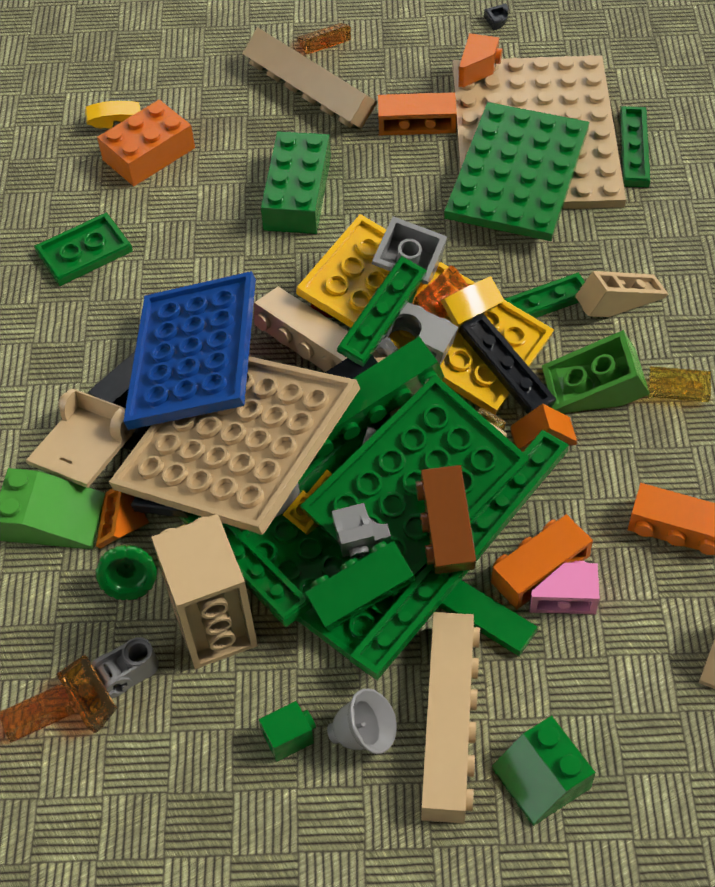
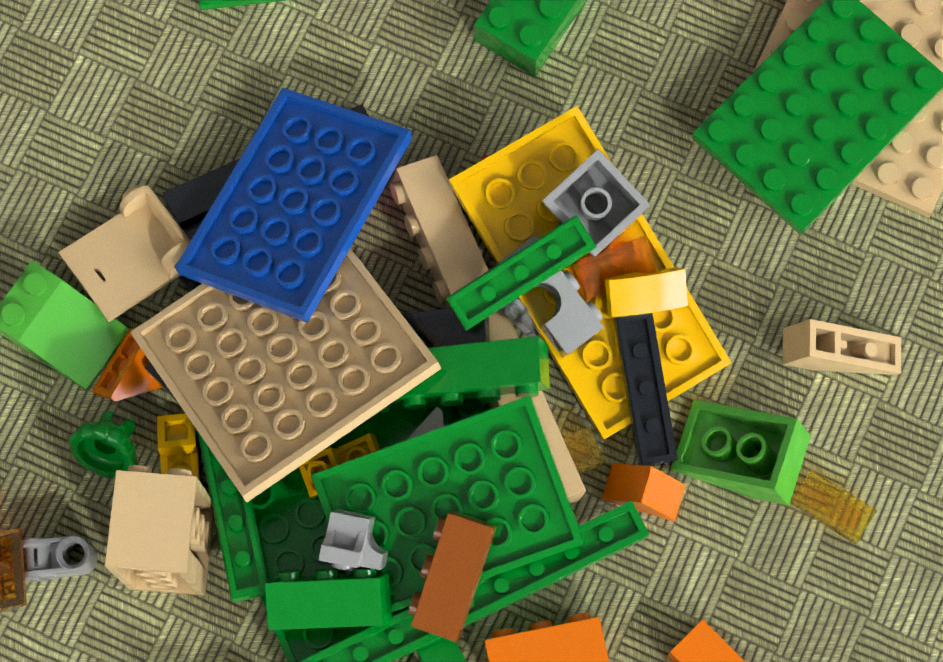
camera: 25 degrees right, 20 degrees up
(549, 296) = (753, 308): green tile -> none

